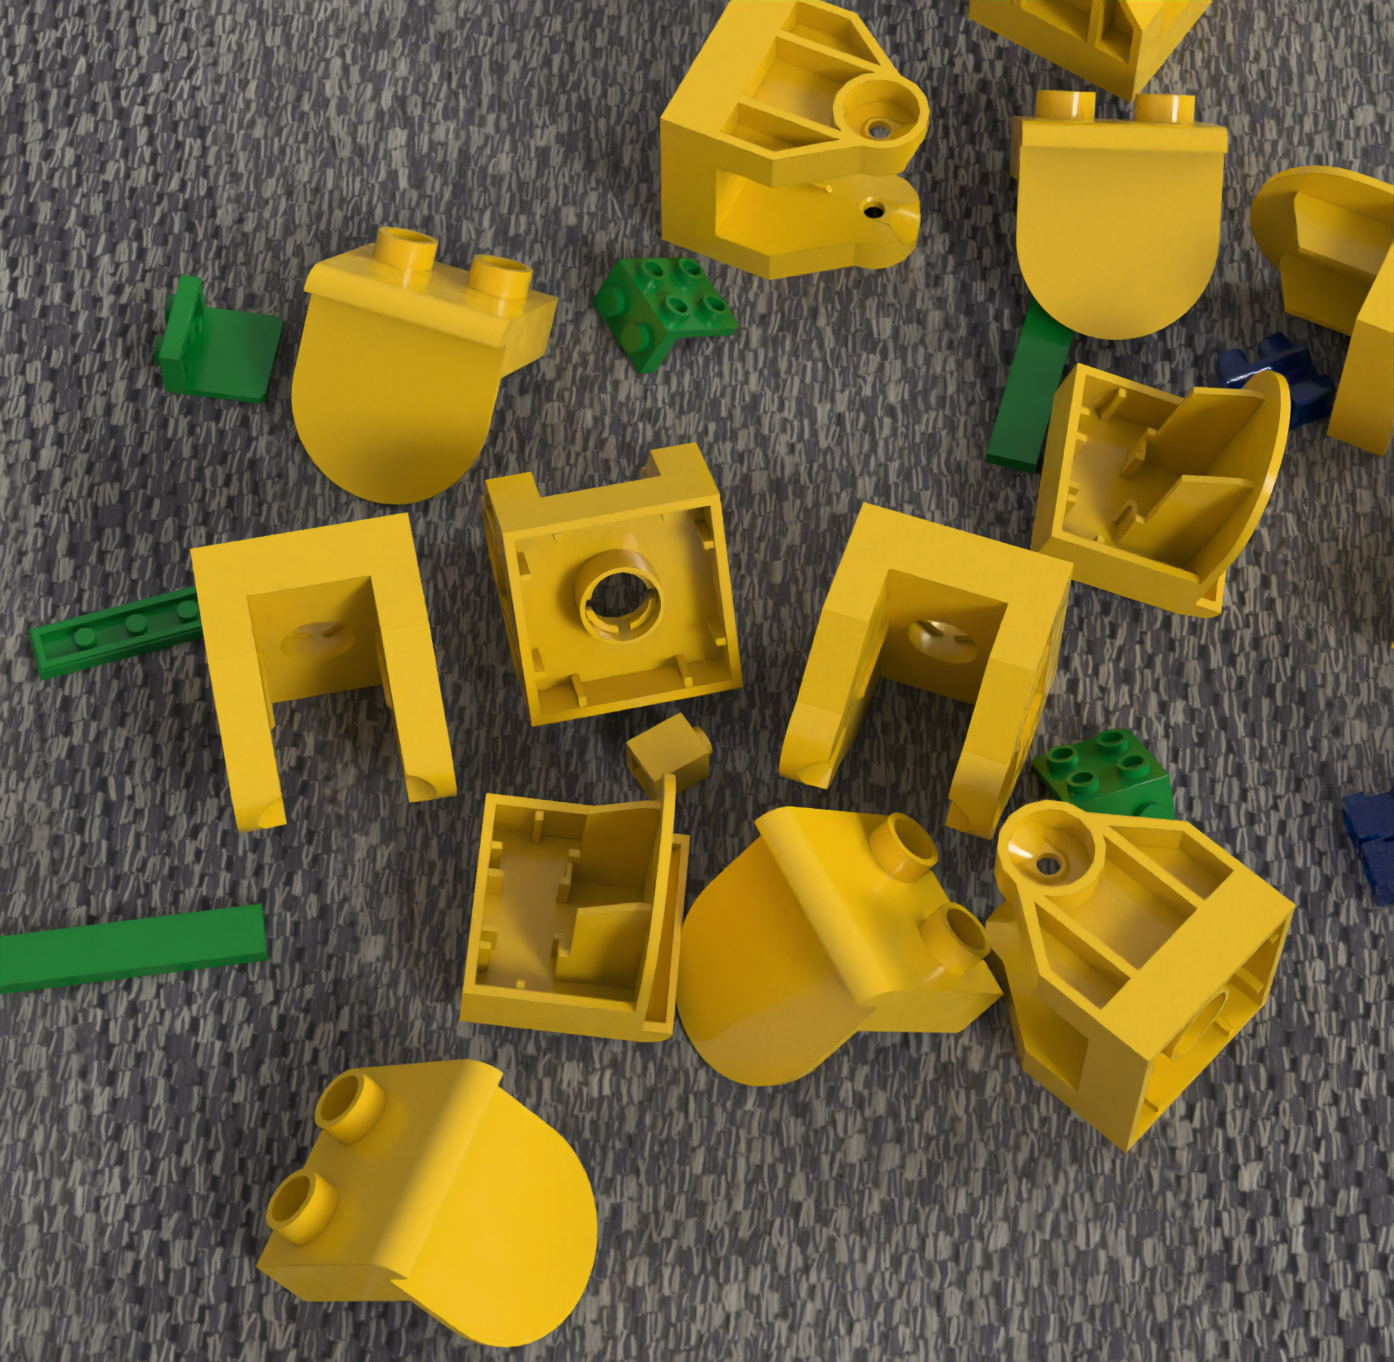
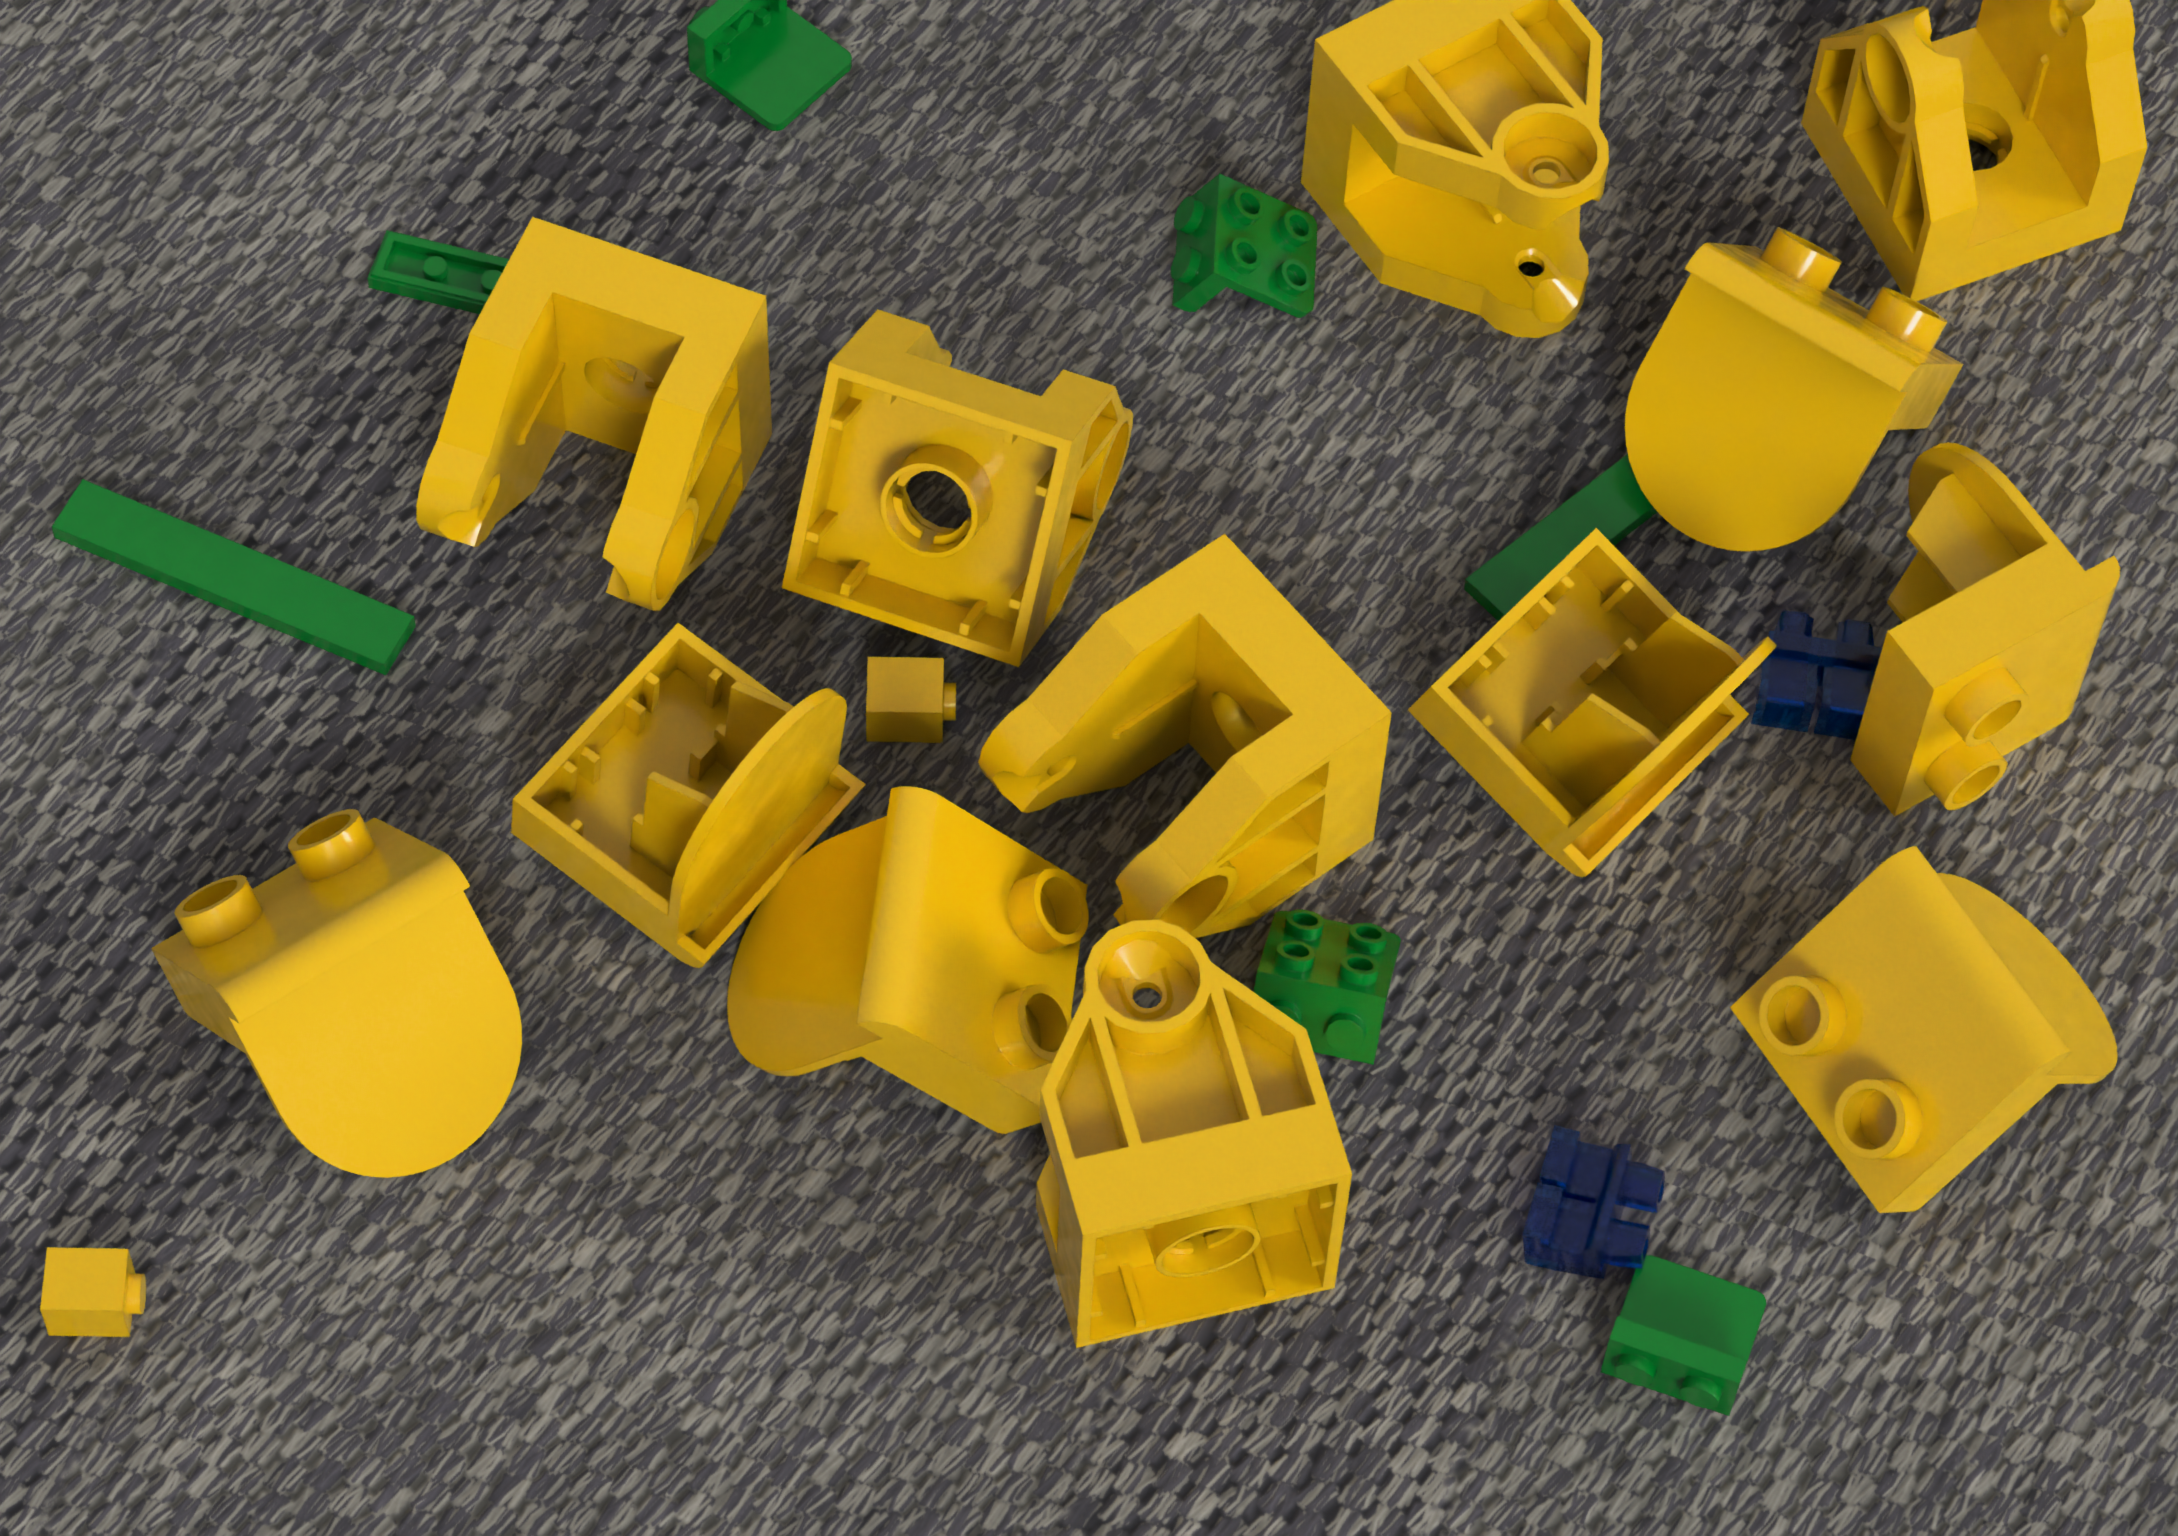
camera: 30 degrees right, 0 degrees up
(409, 362) = (925, 148): yellow plate -> none

